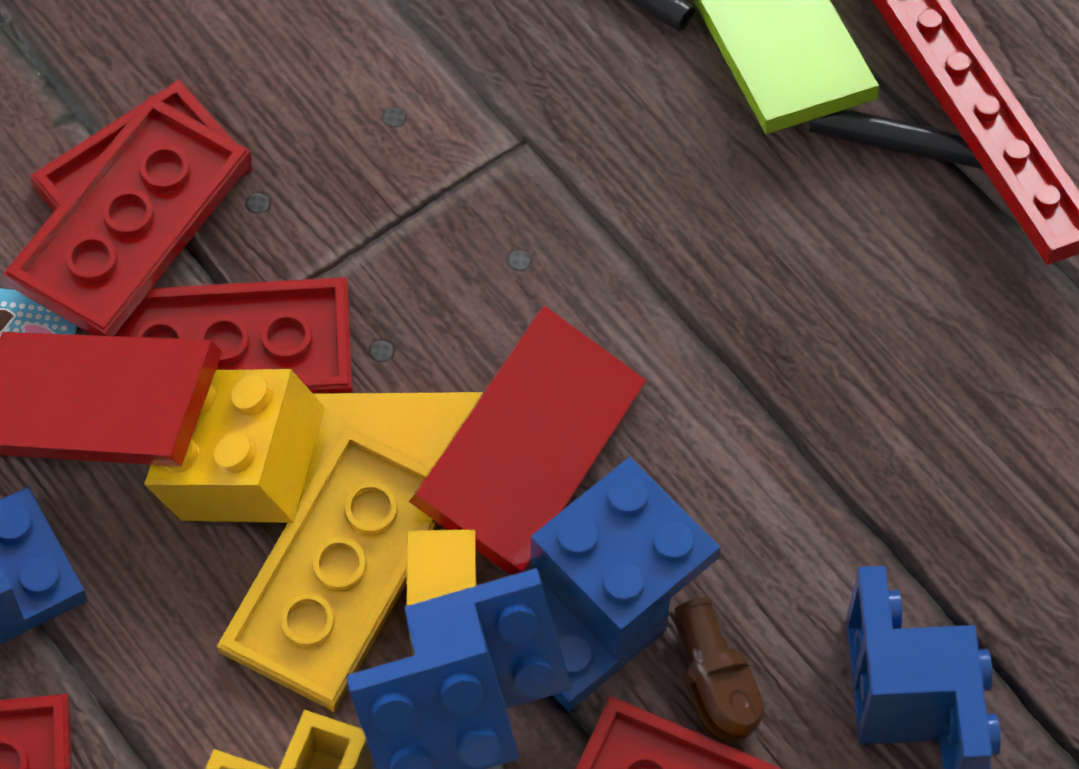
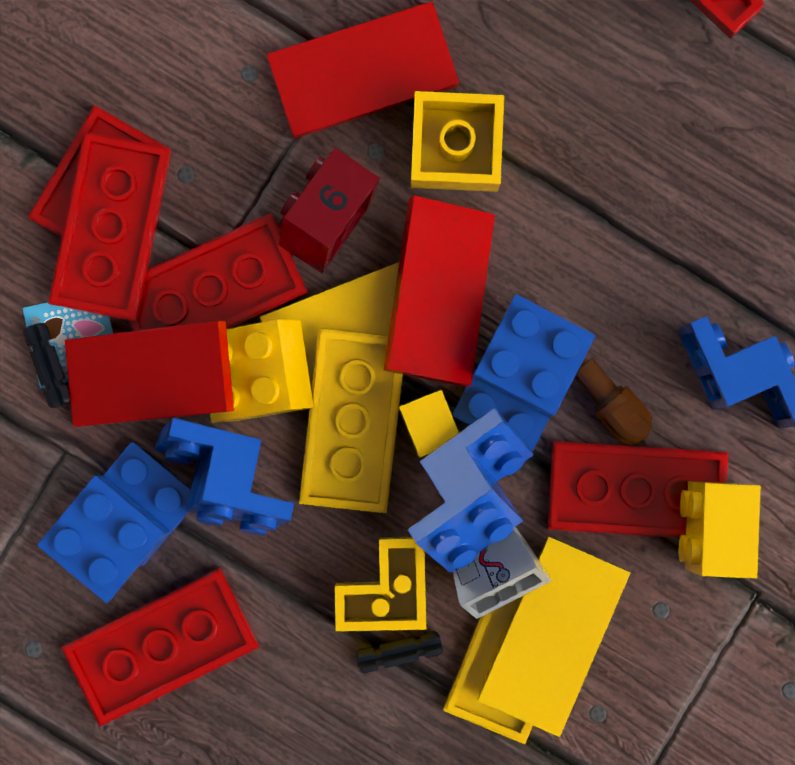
camera: 20 degrees left, 25 degrees up
(121, 564) = (222, 477): none -> blue bracket
(420, 280) = (327, 209): none -> dark red brick
(542, 157) = (362, 69): none -> red tile
(628, 266) = (457, 141): none -> yellow brick

